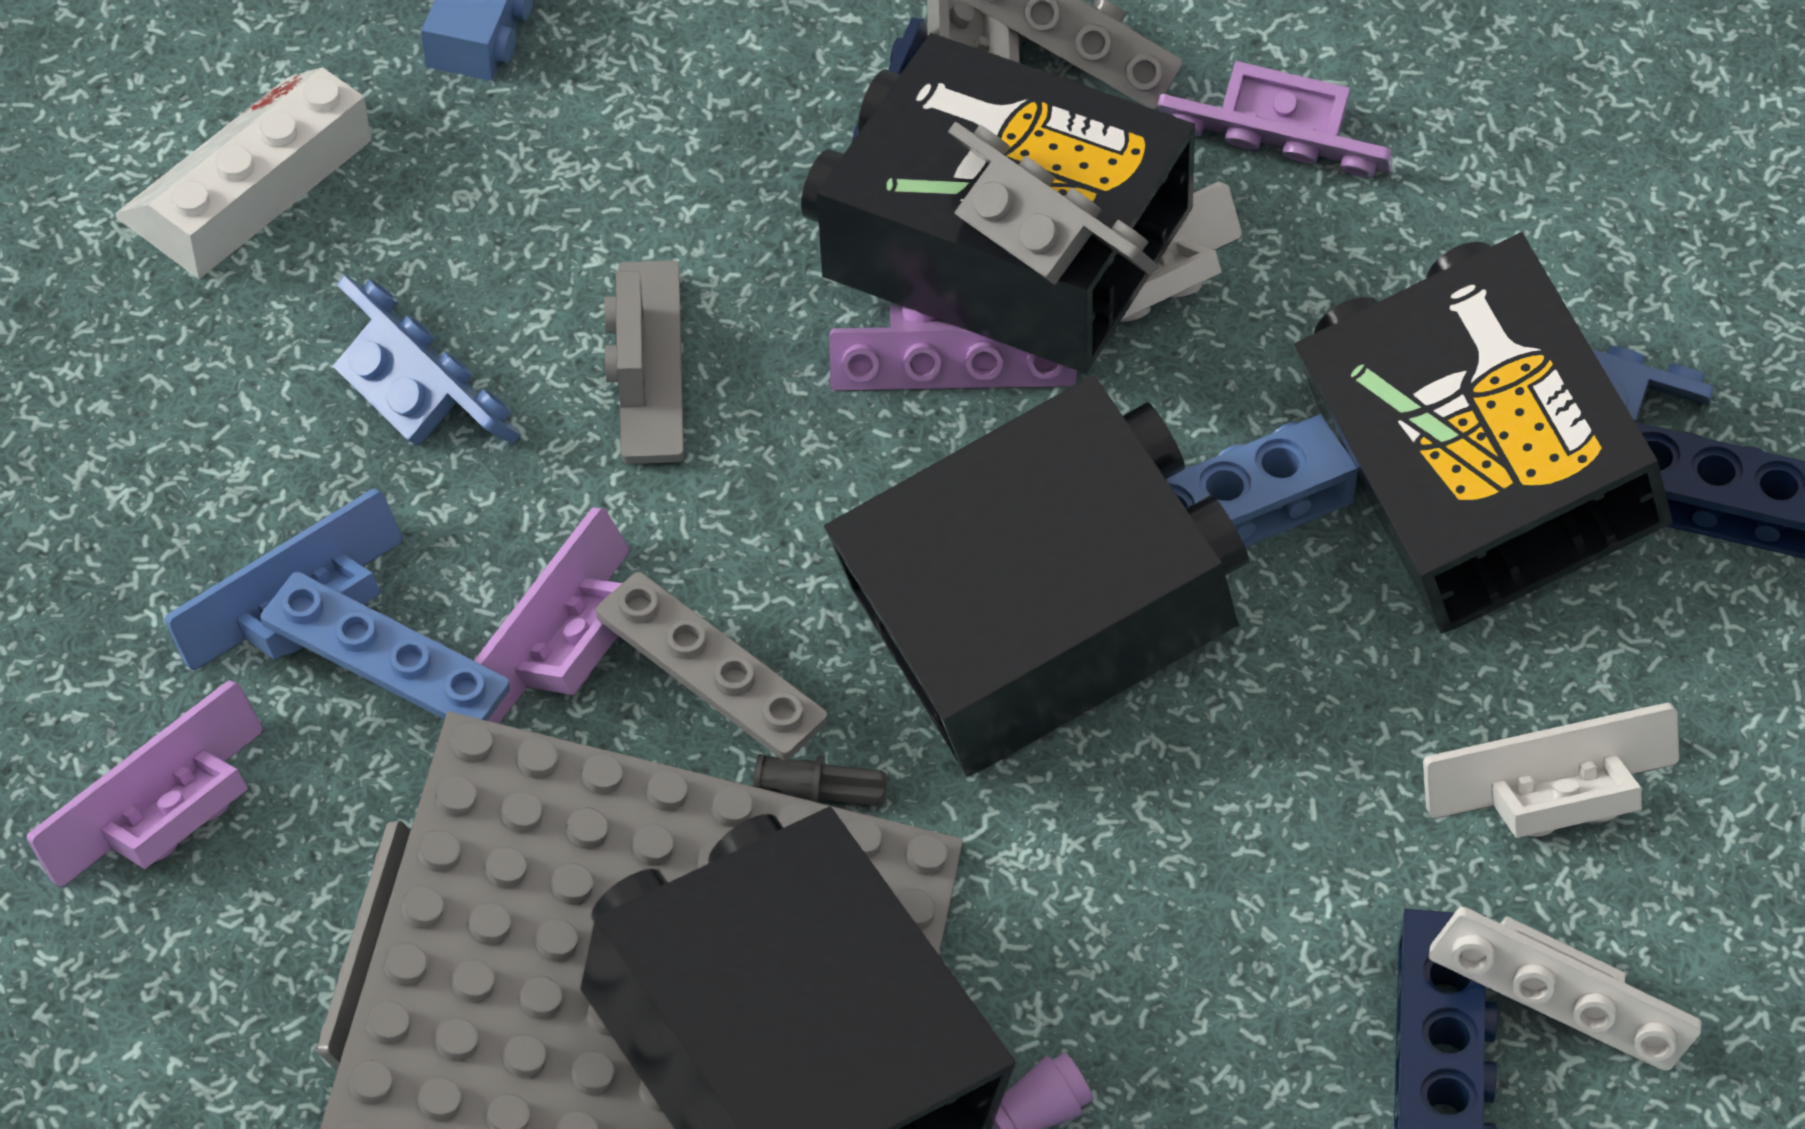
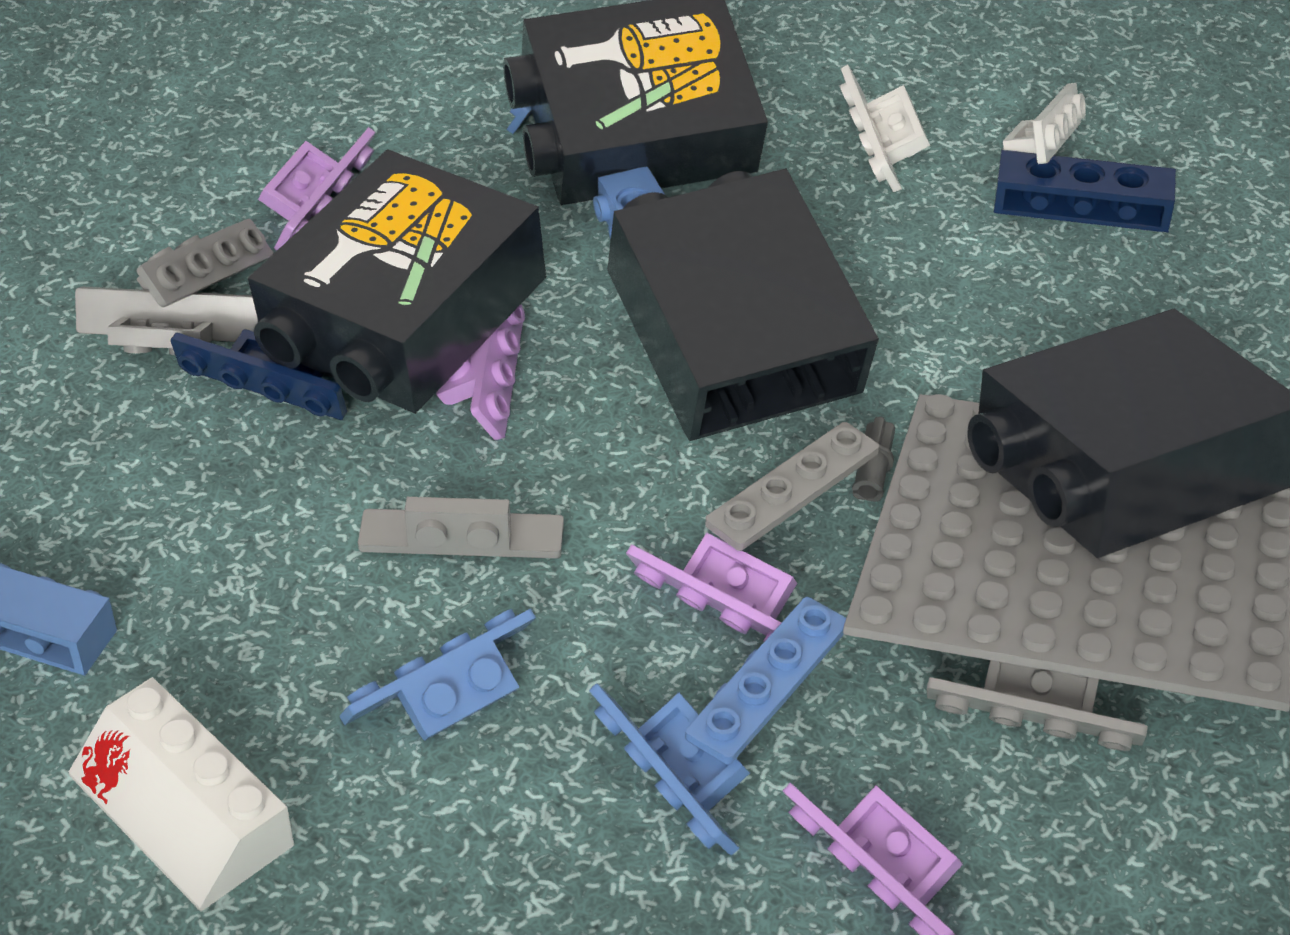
camera: 85 degrees left, 10 degrees down
(1030, 218) = (472, 217): light grey bracket -> none

